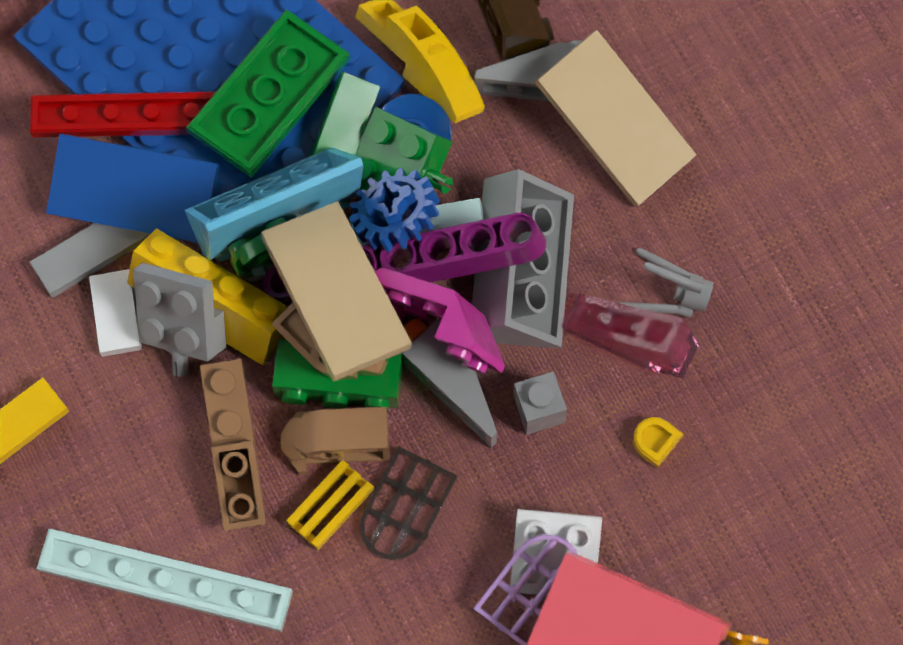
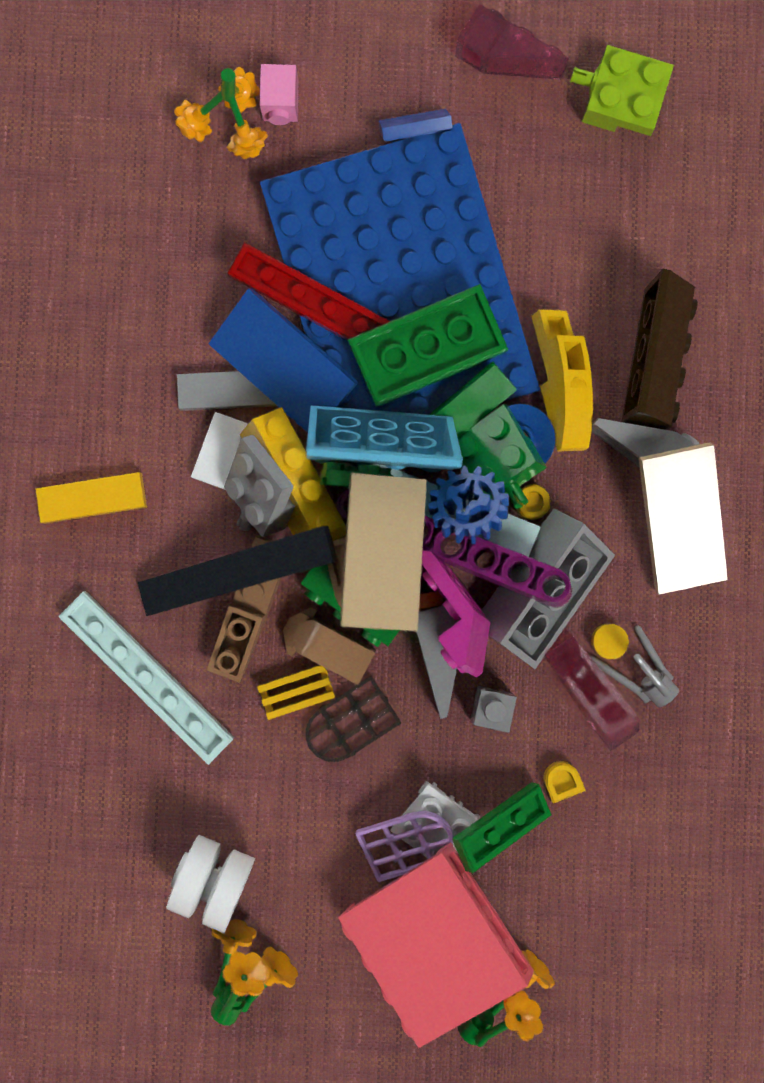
camera: 30 degrees right, 15 degrees up
(199, 408) = (238, 570): none -> black tile
(465, 186) = (537, 504): none -> yellow tile
(617, 509) = (501, 827): none -> green tile
(618, 277) = (609, 641): none -> yellow tile

